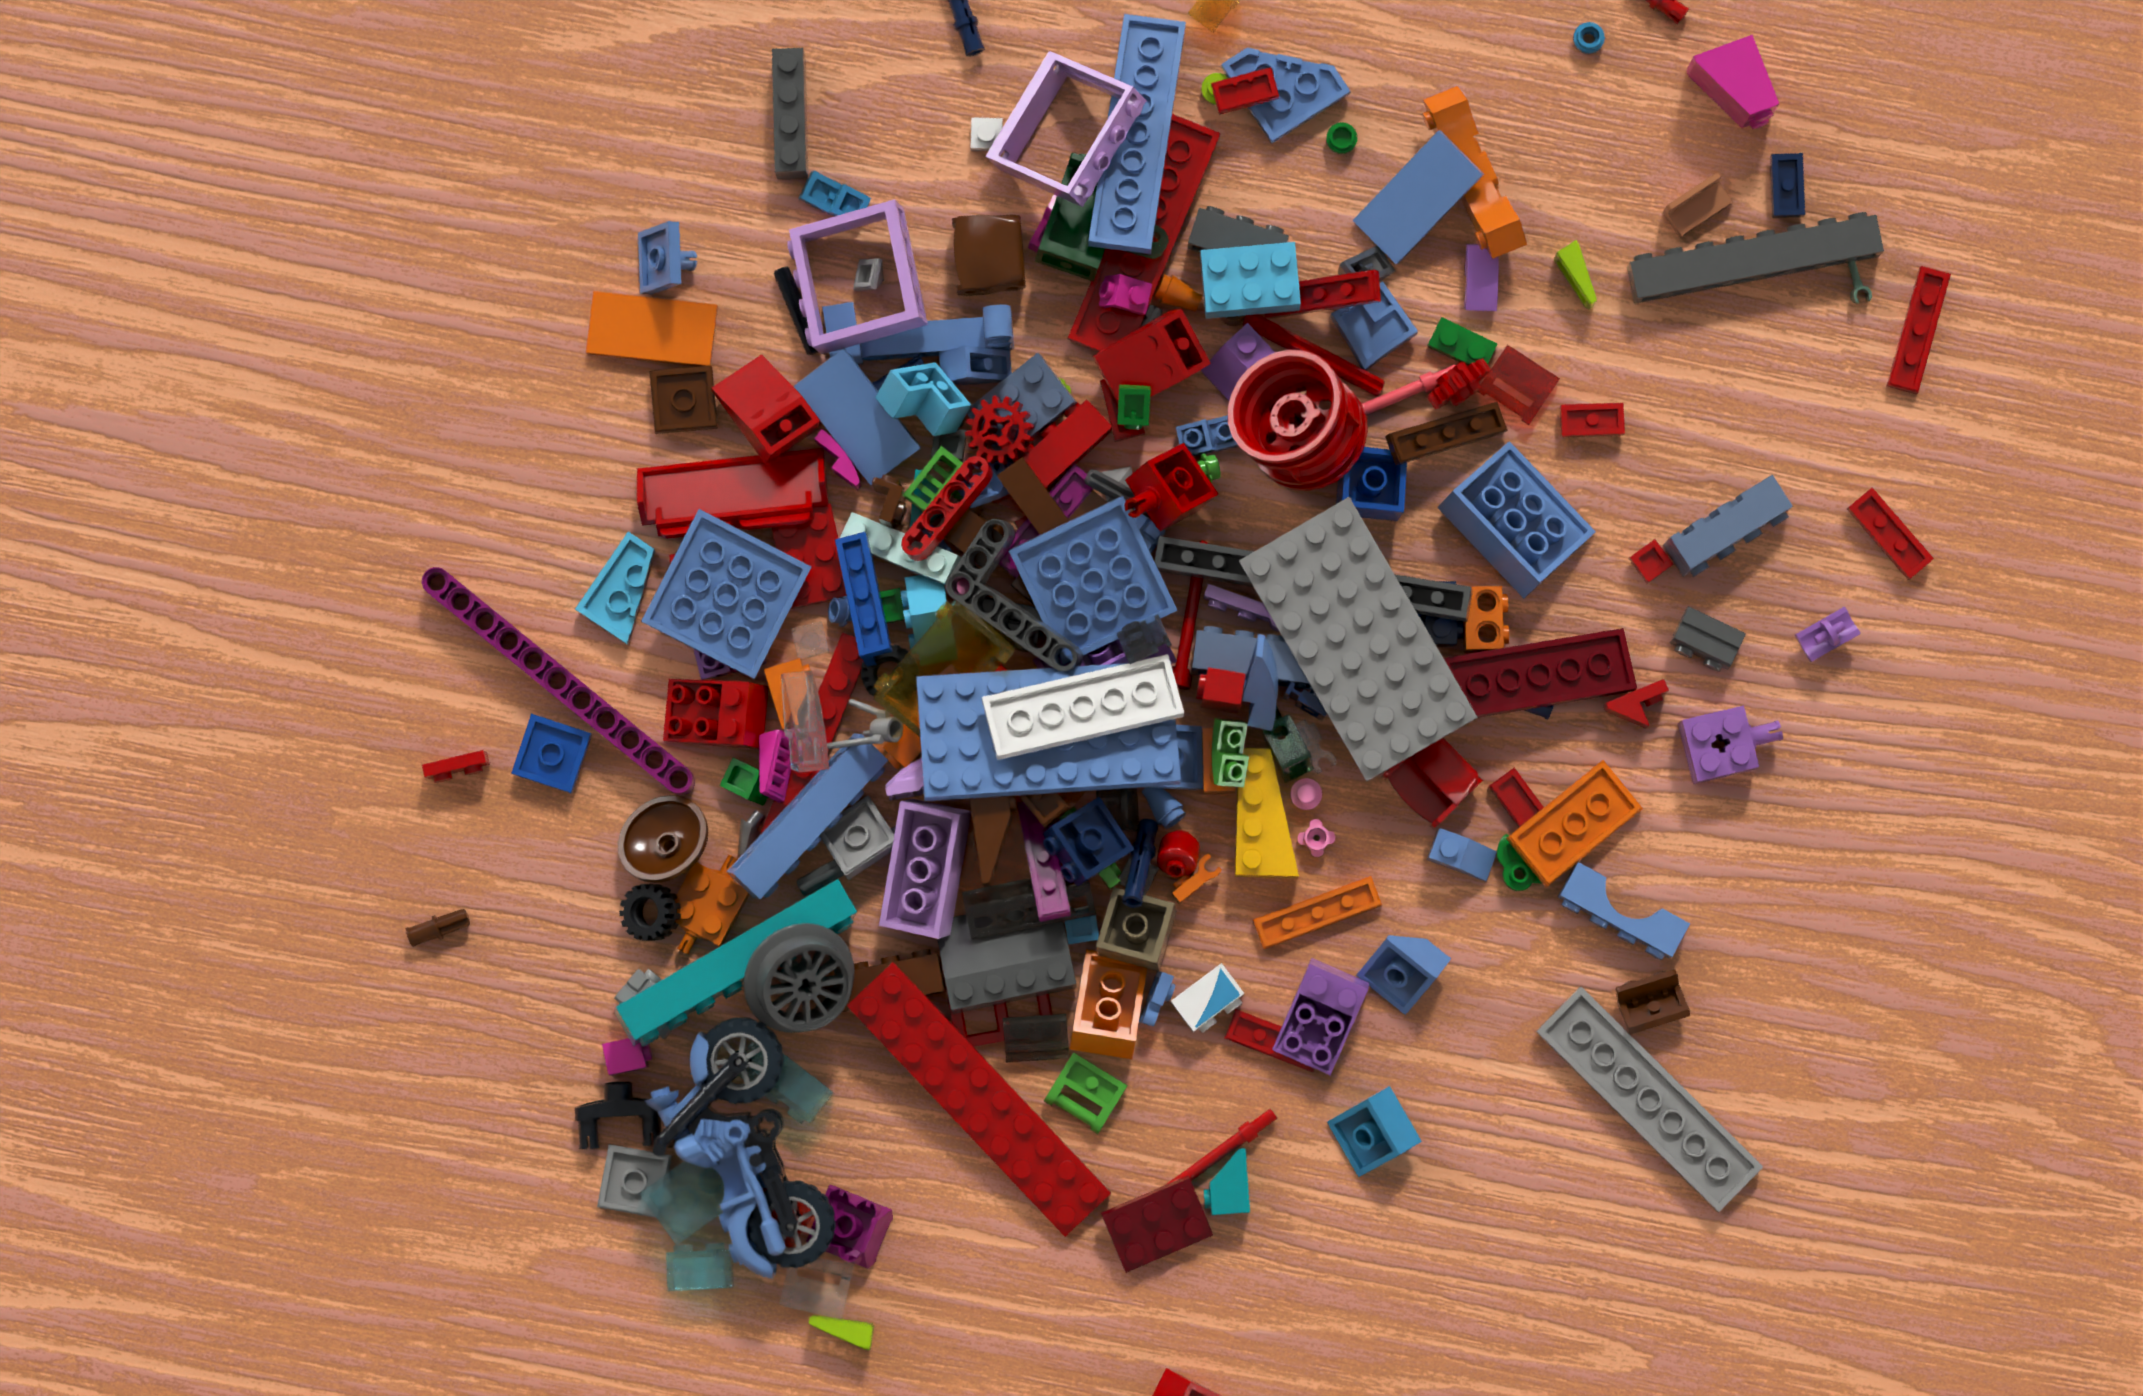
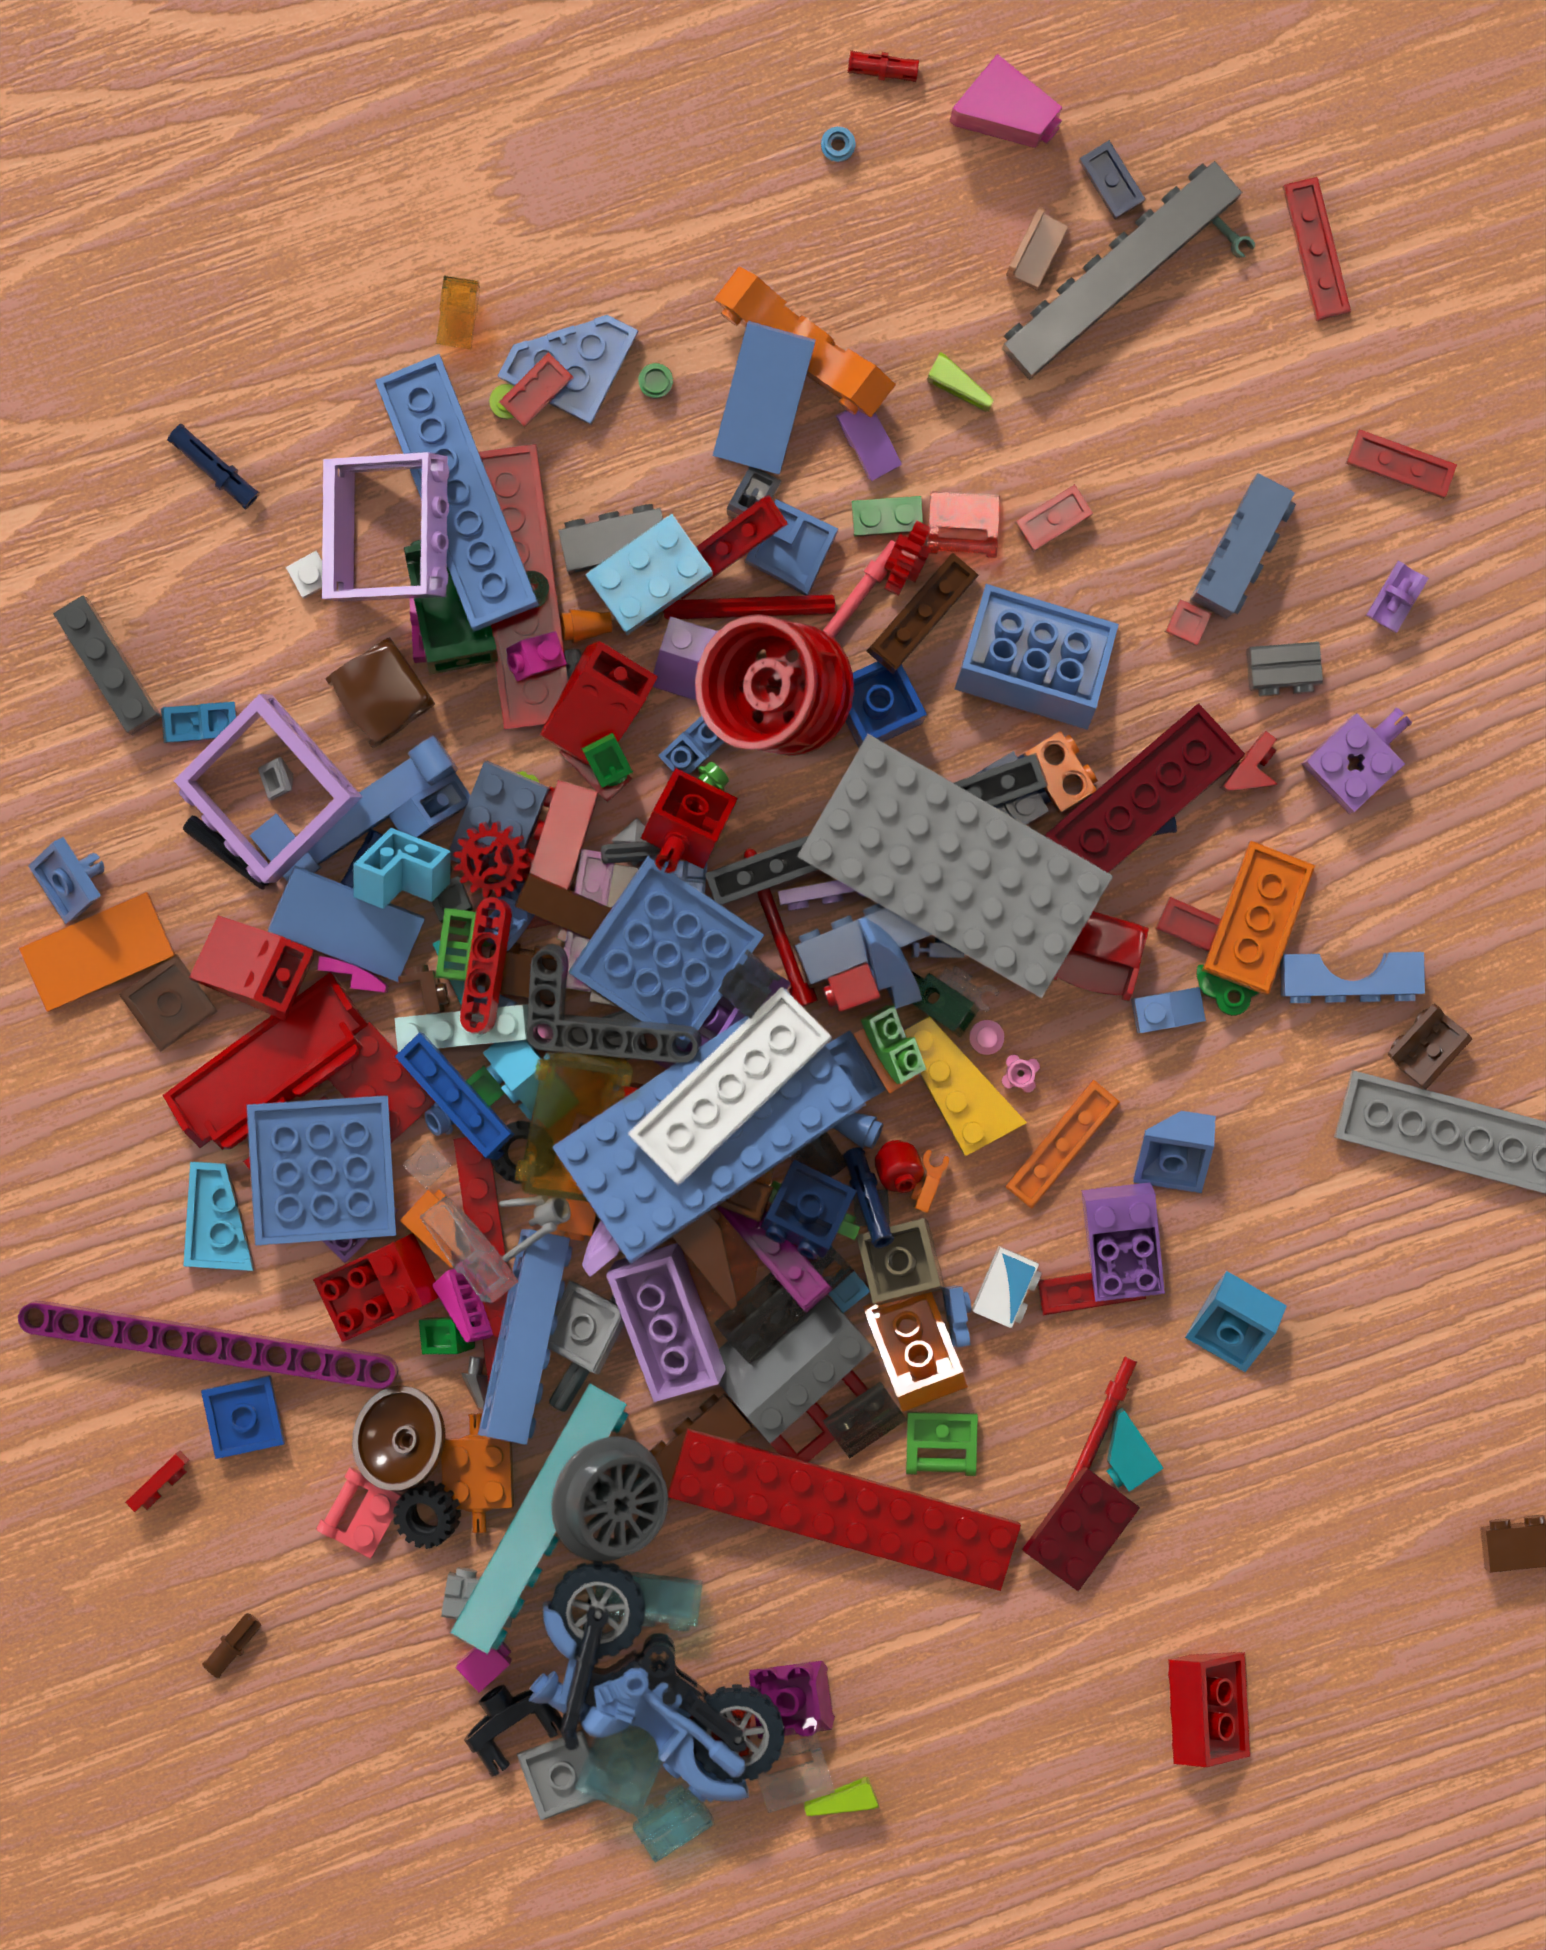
camera: 35 degrees left, 5 degrees up
(603, 892) = (370, 1519): none -> coral plate

